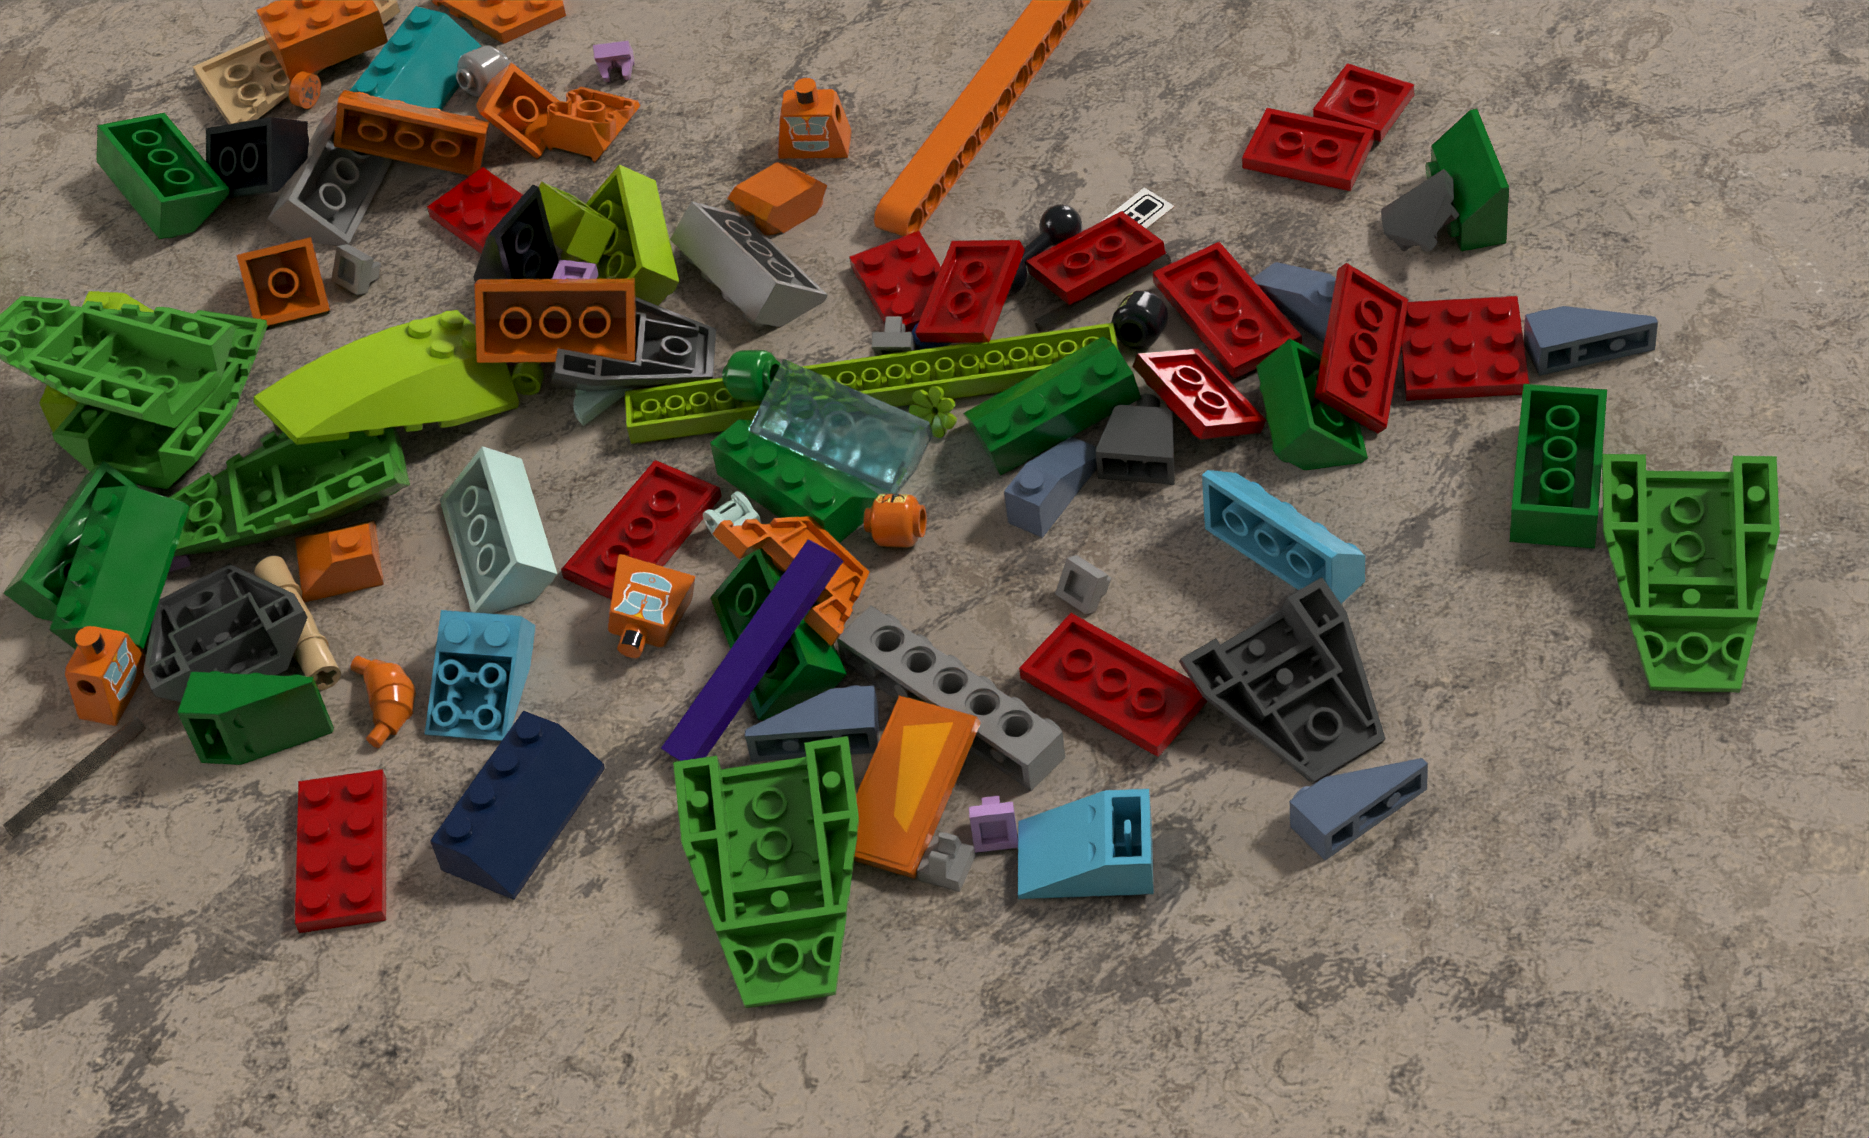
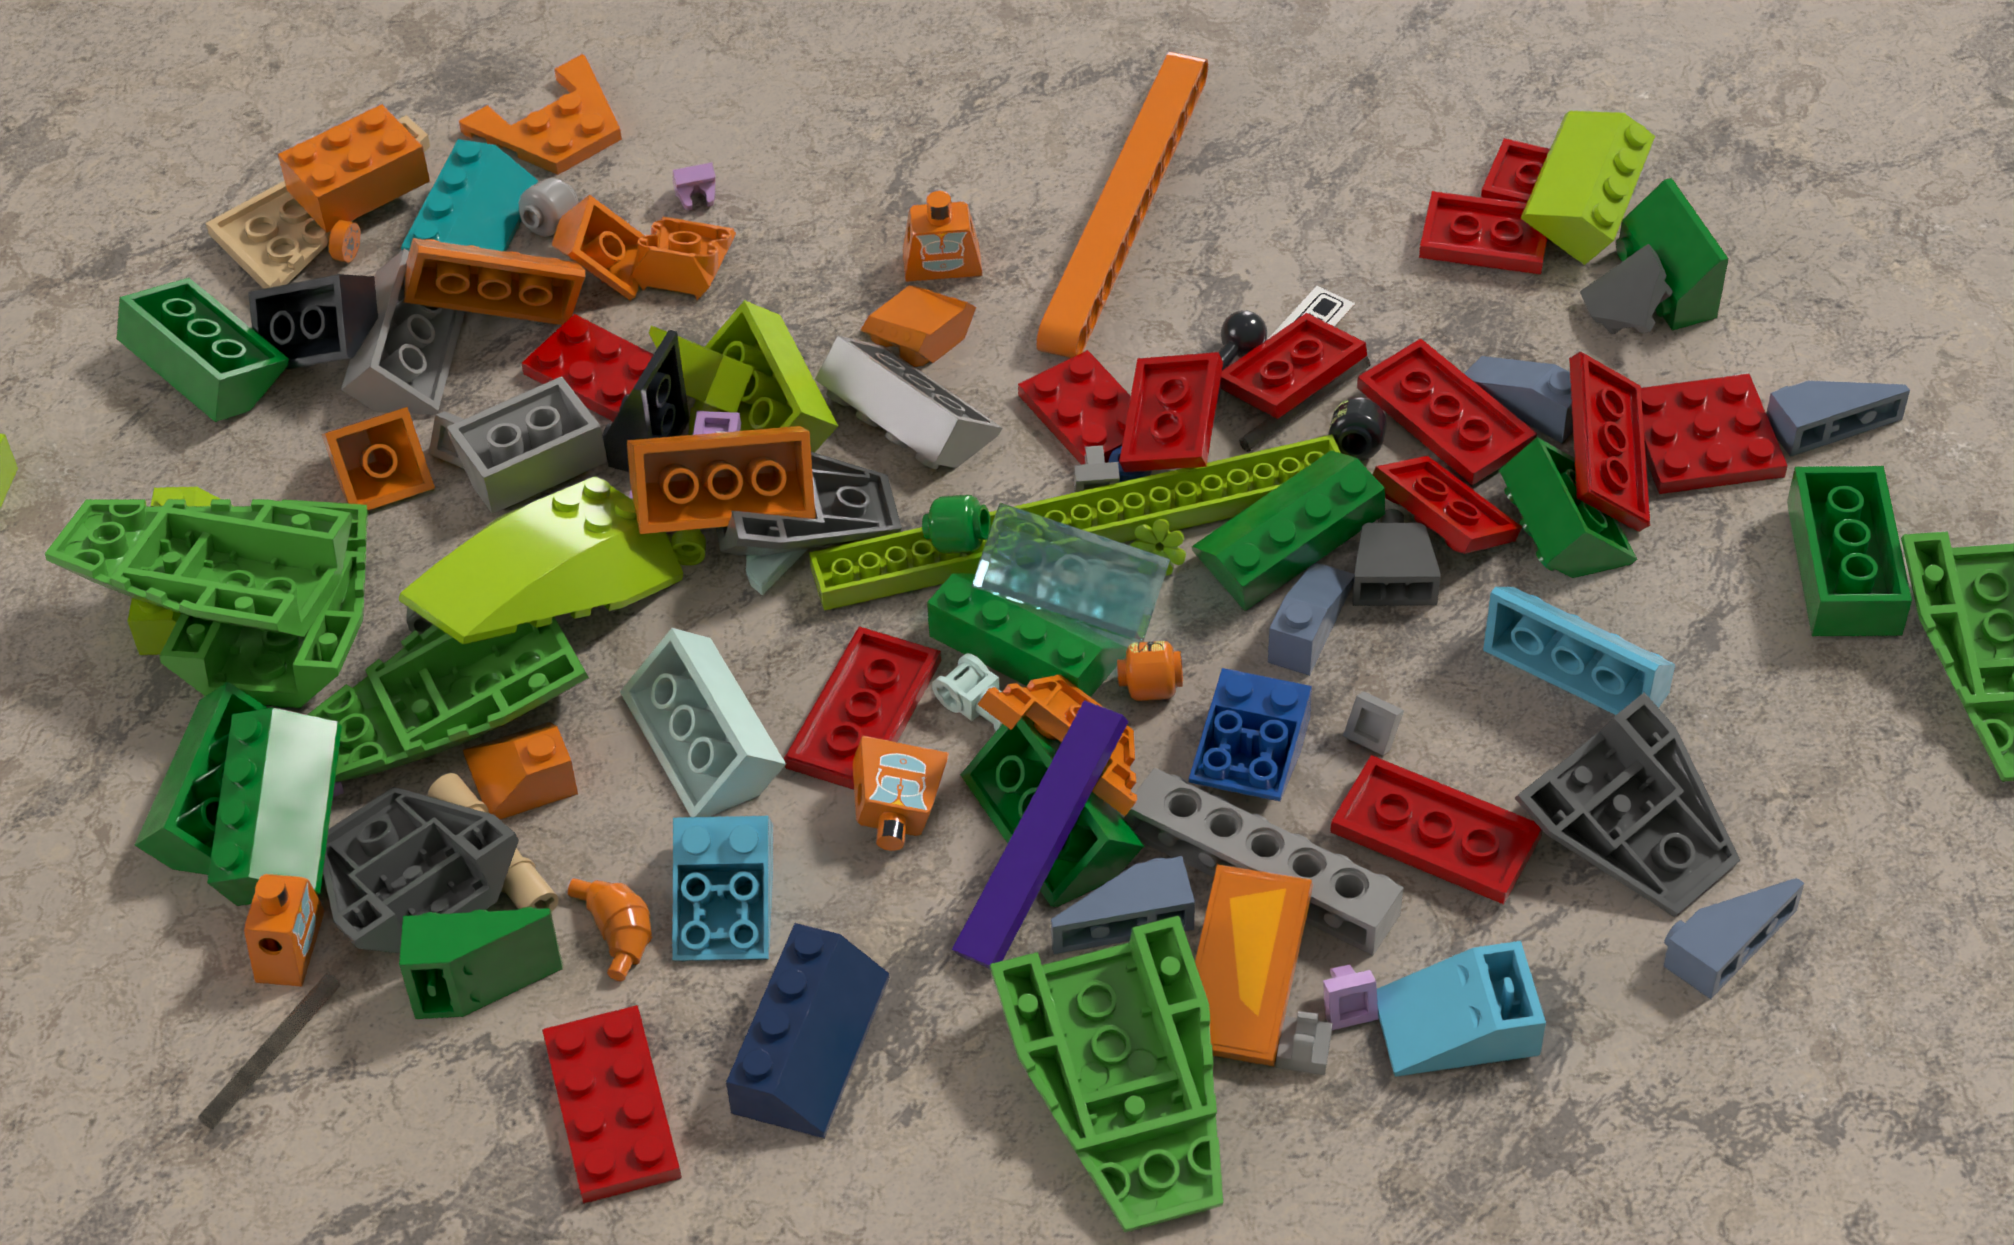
camera: 15 degrees left, 0 degrees up
(410, 277) = (528, 444): none -> light grey slope
(968, 585) = (1252, 735): none -> blue slope
(1410, 107) = (1588, 181): none -> lime slope

